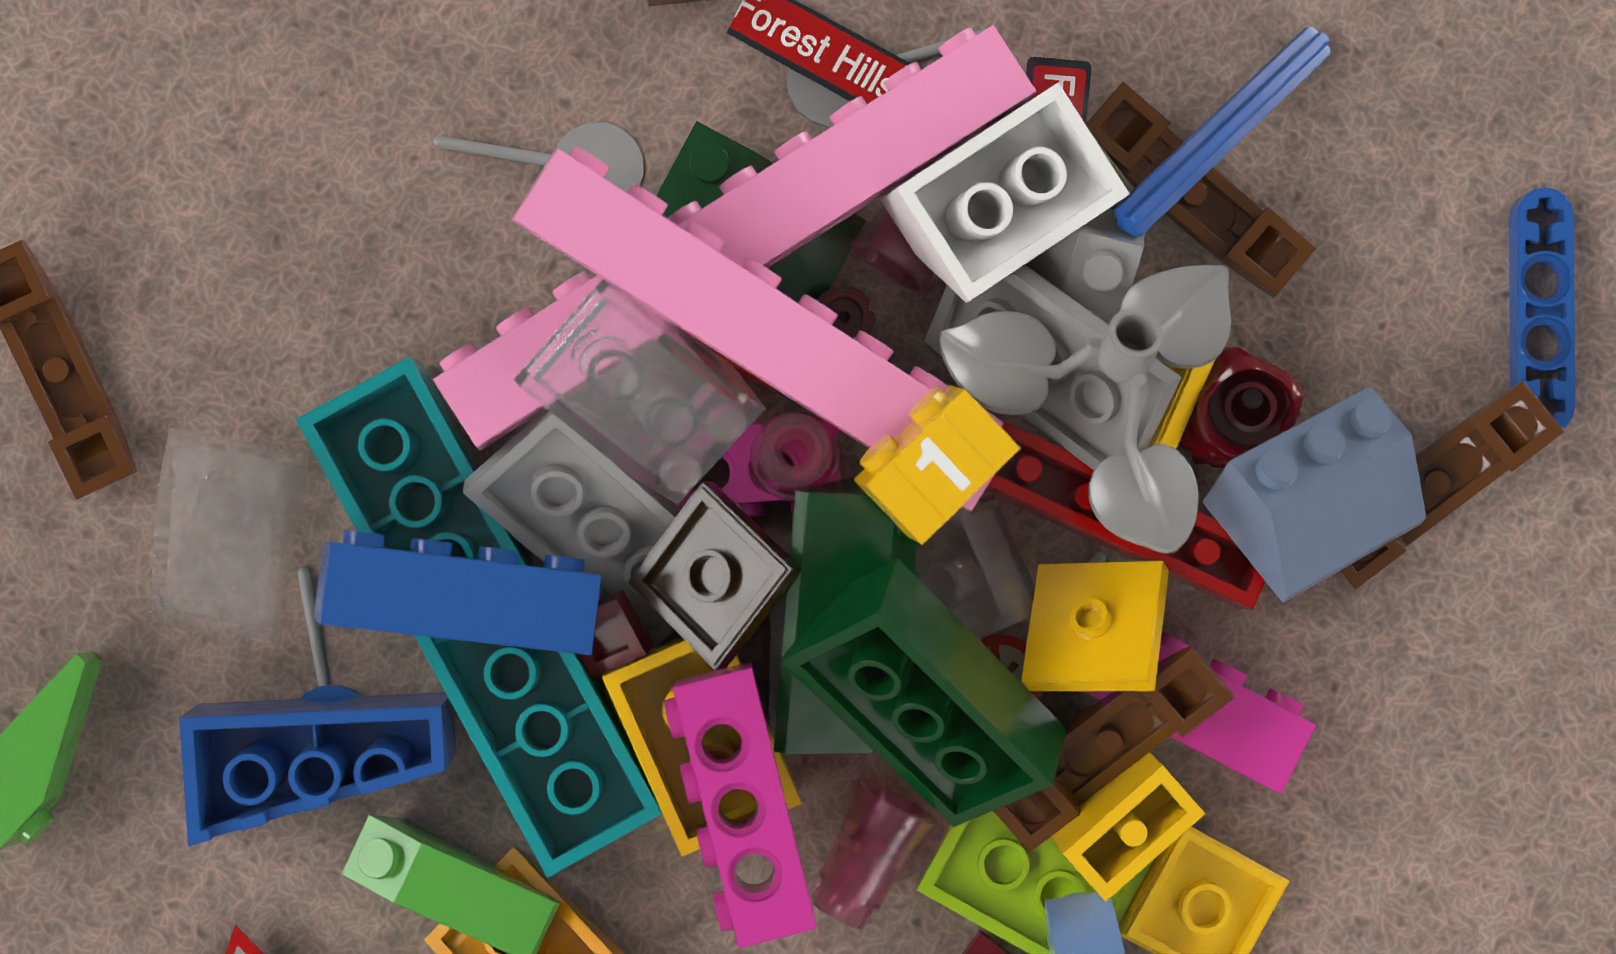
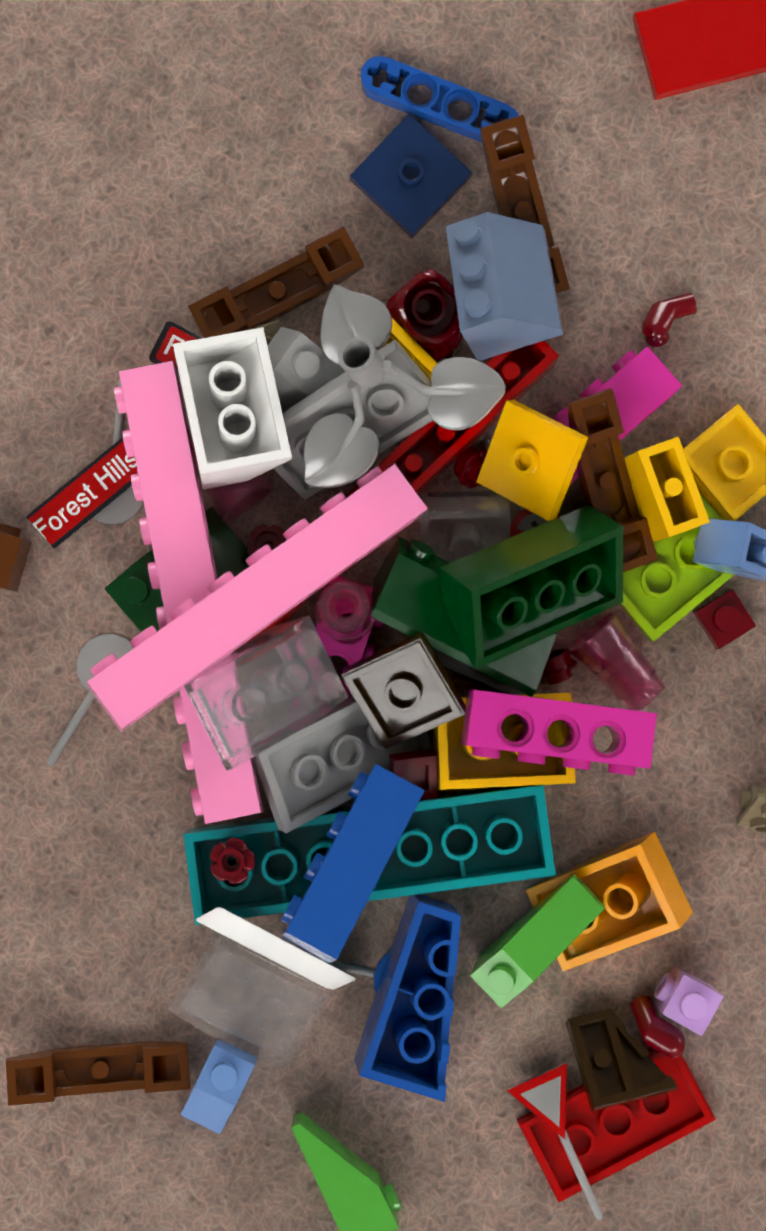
camera: 70 degrees left, 0 degrees up
(94, 536) = (219, 1086): none -> medium blue slope
(304, 539) = (275, 948): none -> white sticker
(416, 438) = (244, 860): none -> dark red plate
(832, 774) = (558, 666): none -> dark red plate
(935, 461) = (387, 517): yellow brick -> none
(1057, 546) = (469, 465): none -> dark red plate
(1221, 132) = (246, 256): blue axle -> none
(1368, 730) = (662, 316): none -> dark red arm
(1424, 312) = (410, 176): none -> dark blue plate

